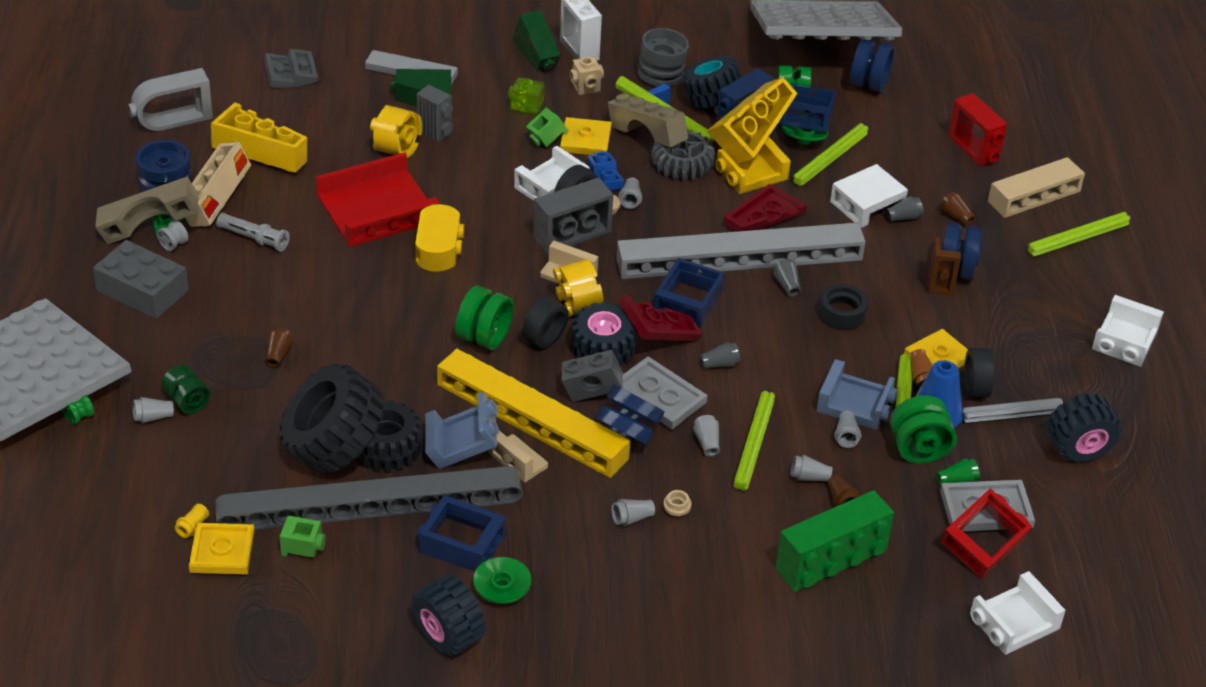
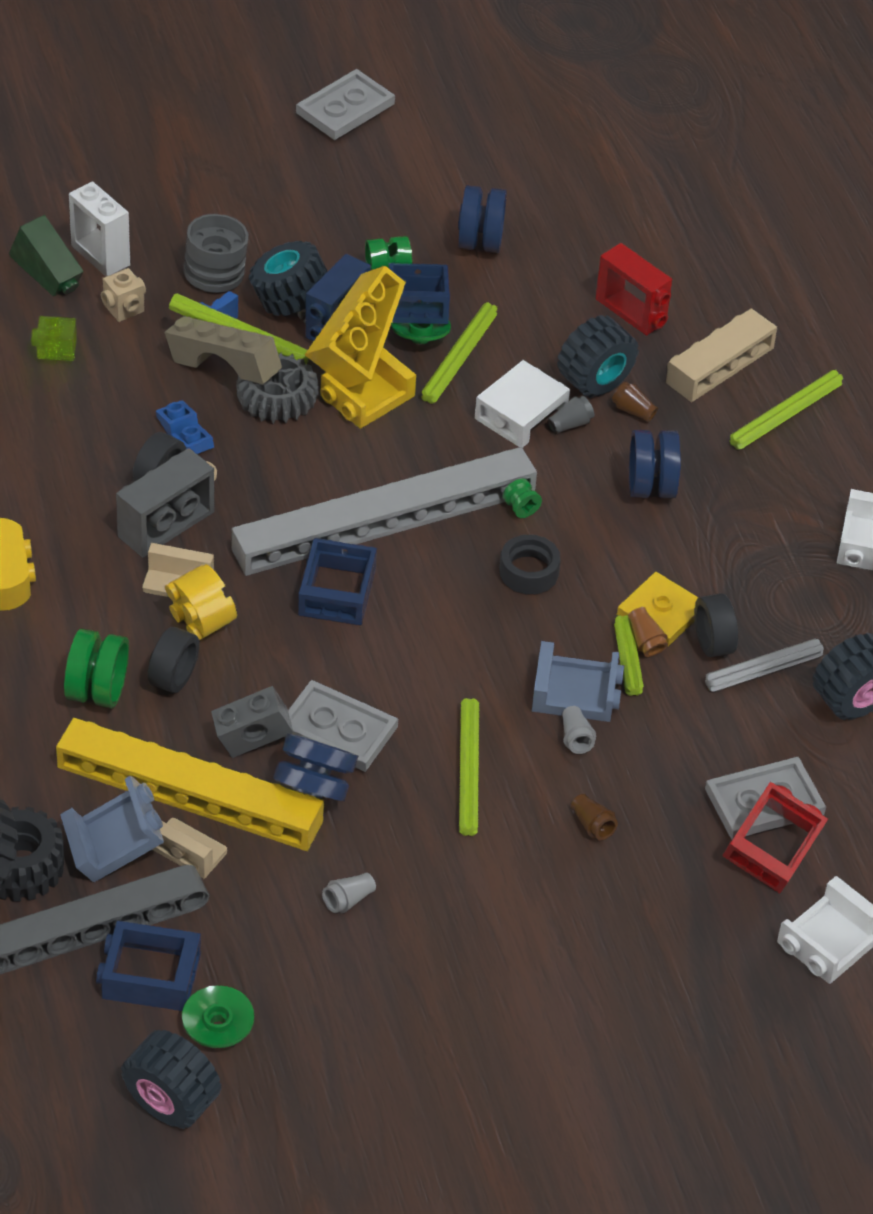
camera: 15 degrees left, 5 degrees up
(544, 177) = (114, 452): white panel -> none
(546, 128) = (93, 381): bright green brick -> none
(586, 136) = (145, 382): yellow plate -> none
(603, 329) = (249, 659): black wheel -> none
(630, 194) = (226, 455): light grey cone -> none
(659, 324) = (315, 634): dark red wing -> none
(677, 503) = (402, 863): tan plate -> none
(707, 433) = (411, 769): light grey cone -> none
(721, 356) = (400, 661): dark grey cone -> none
(764, 209) = (397, 447): dark red wing -> none
(787, 275) = (452, 536): dark grey cone -> none
(808, 469) = (545, 793): light grey cone -> none
(825, 19) = (407, 164): light grey plate -> none
(834, 540) = (602, 884): green brick -> none
(850, 259) = (522, 498): none -> green wheel
(923, 429) = (669, 715): green wheel -> none
(935, 169) = (598, 356): none -> black wheel
(943, 270) = (639, 493): reddish brown panel -> none
(944, 383) = (677, 671): blue cone -> none
(962, 471) = (724, 761): green cone -> none

